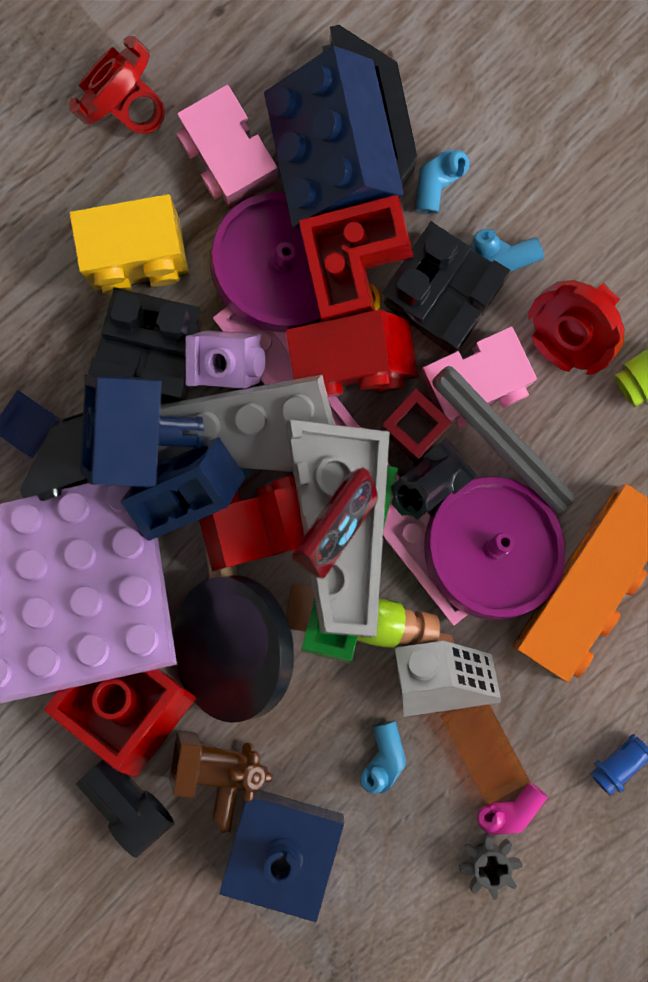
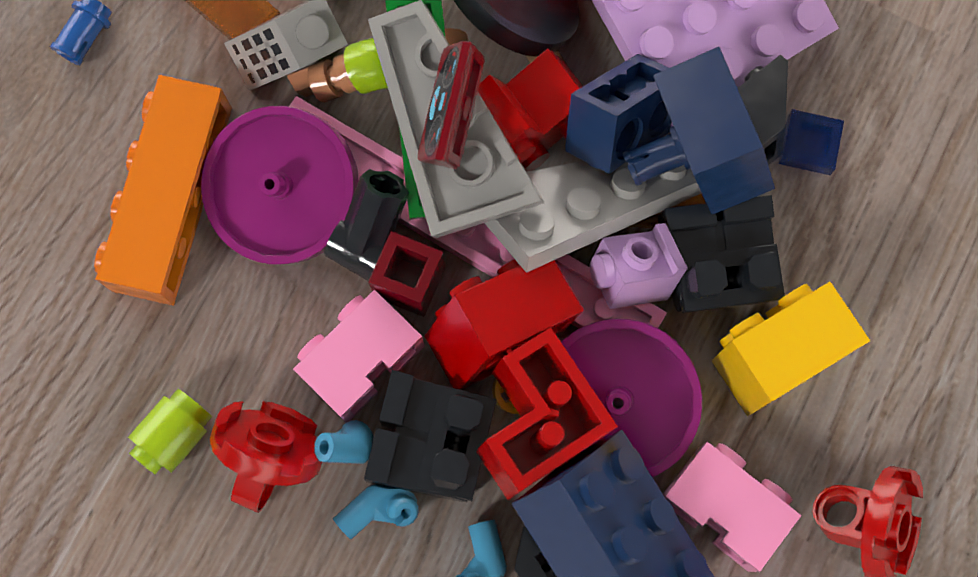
camera: 165 degrees right, 10 degrees down
(503, 439) = (310, 293): dark grey axle -> none
(510, 301) = (347, 445): none -> dark azure arm

